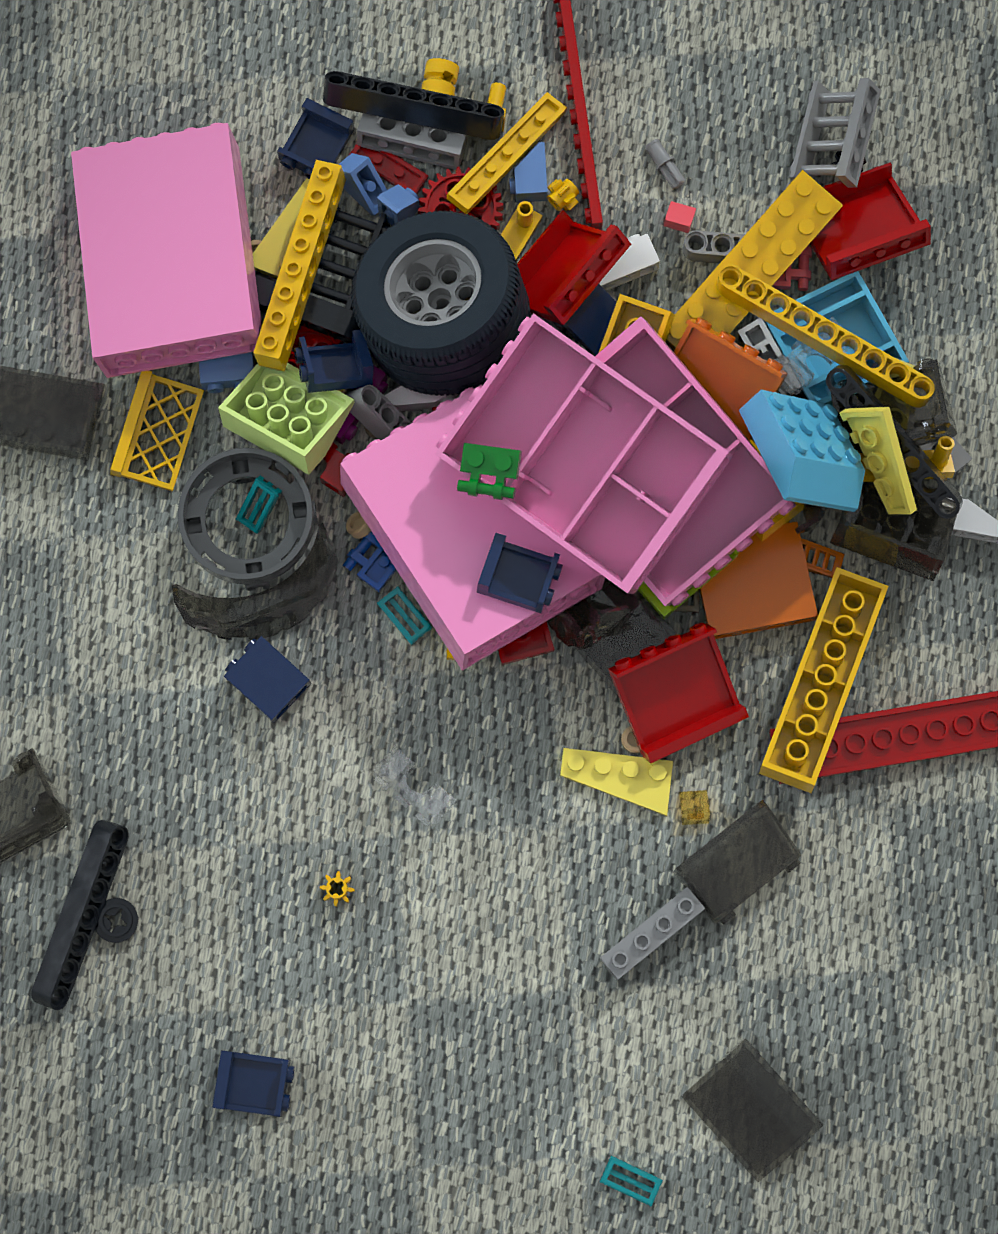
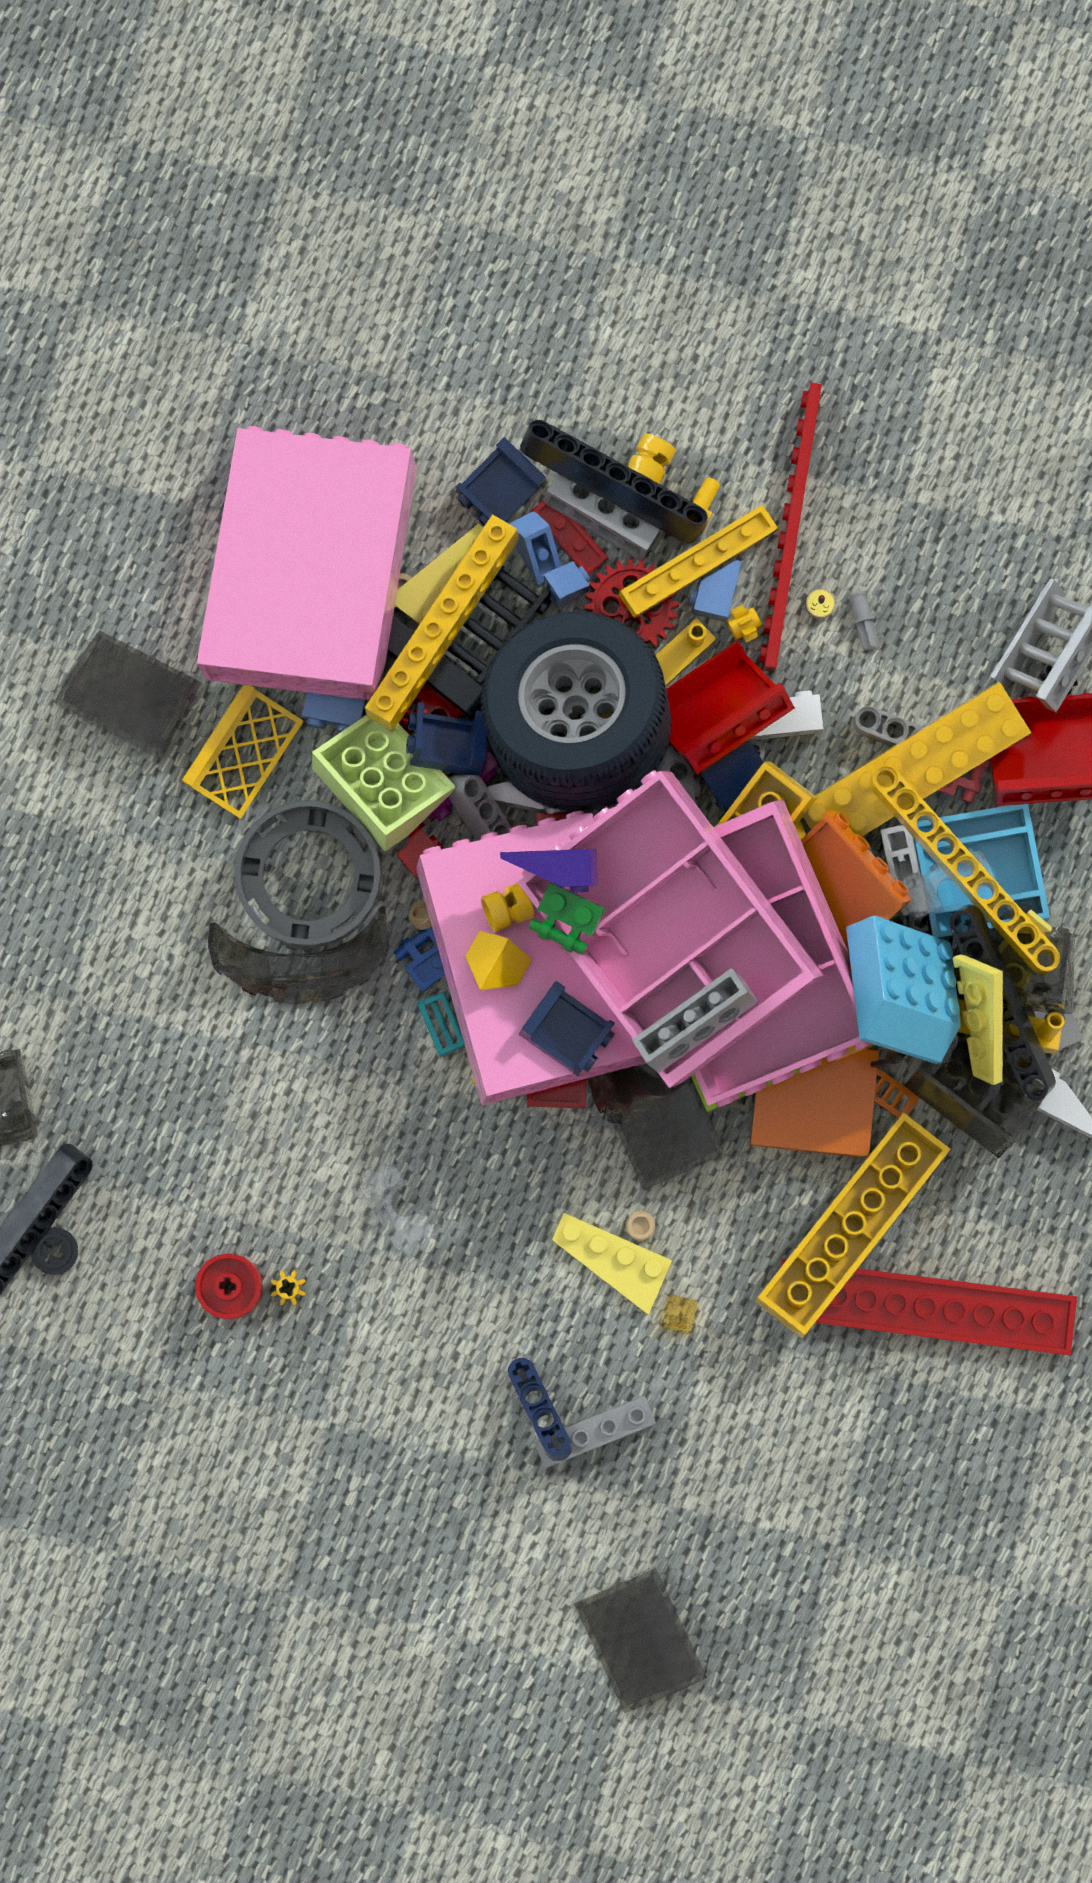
camera: 15 degrees right, 5 degrees up
(253, 1083) = (145, 1459): dark blue panel -> none
(267, 489) = (338, 851): teal tile -> none
(267, 678) = (279, 1048): dark blue panel -> none
(271, 891) = (211, 1286): none -> red wheel
(431, 483) = (497, 908): none -> yellow wheel
(437, 532) = (496, 961): none -> yellow slope
(473, 424) = (562, 867): none -> dark purple slope
(595, 928) = (541, 1408): none -> dark blue beam
(608, 1170) = (515, 1689): teal tile -> none
(623, 161) = (820, 603): none -> light yellow tile
(633, 522) = (695, 1020): none -> light grey brick
(677, 692) = (697, 1193): red panel -> none
(679, 217) = (861, 682): coral slope -> none
(738, 862) = (706, 1387): clear smoke windscreen -> none

